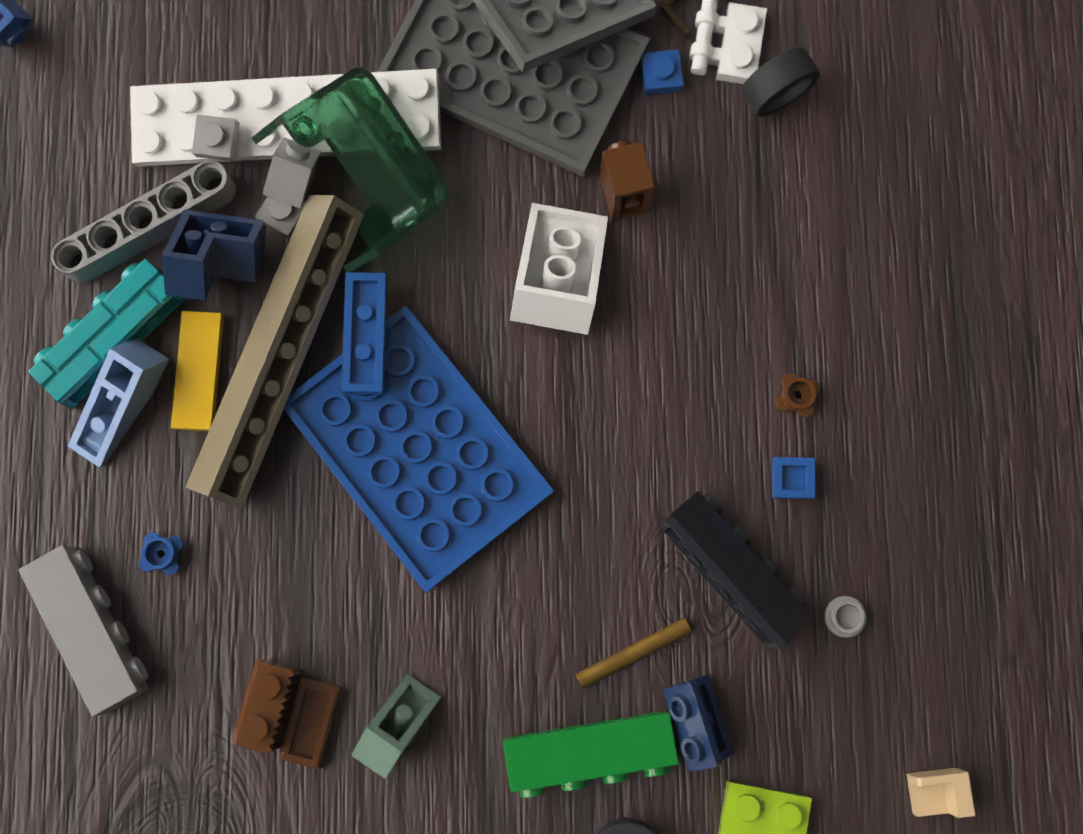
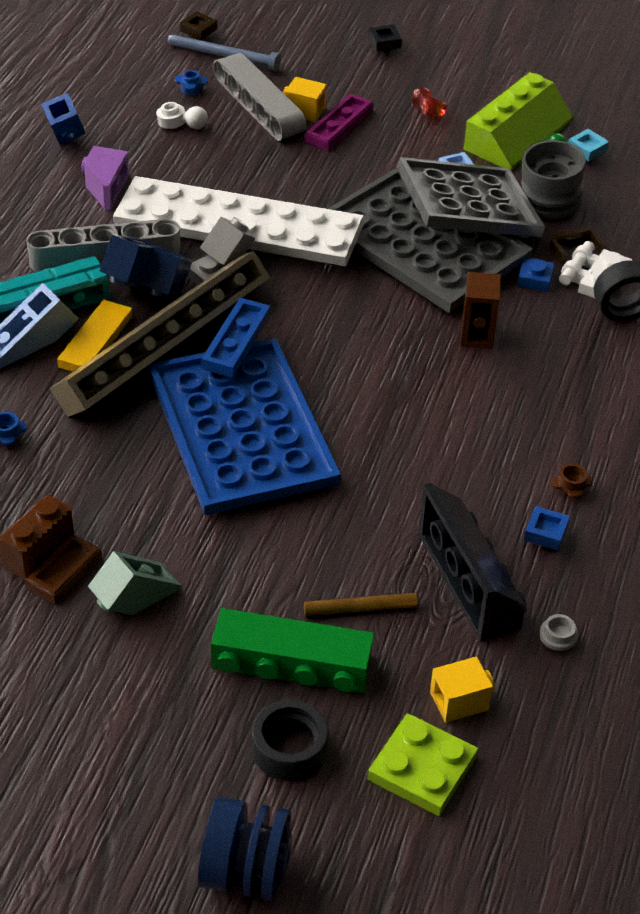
camera: 15 degrees right, 35 degrees down
(92, 92) = (105, 174): none -> medium lavender slope
(215, 137) = (182, 209): light grey plate -> none
(376, 153) = (292, 233): clear green windscreen -> none
(559, 269) = (403, 354): white slope -> none
(698, 723) = (397, 655): dark blue bracket -> none
(775, 734) = (461, 689): none -> yellow brick
(941, 793) = (600, 779): tan panel -> none

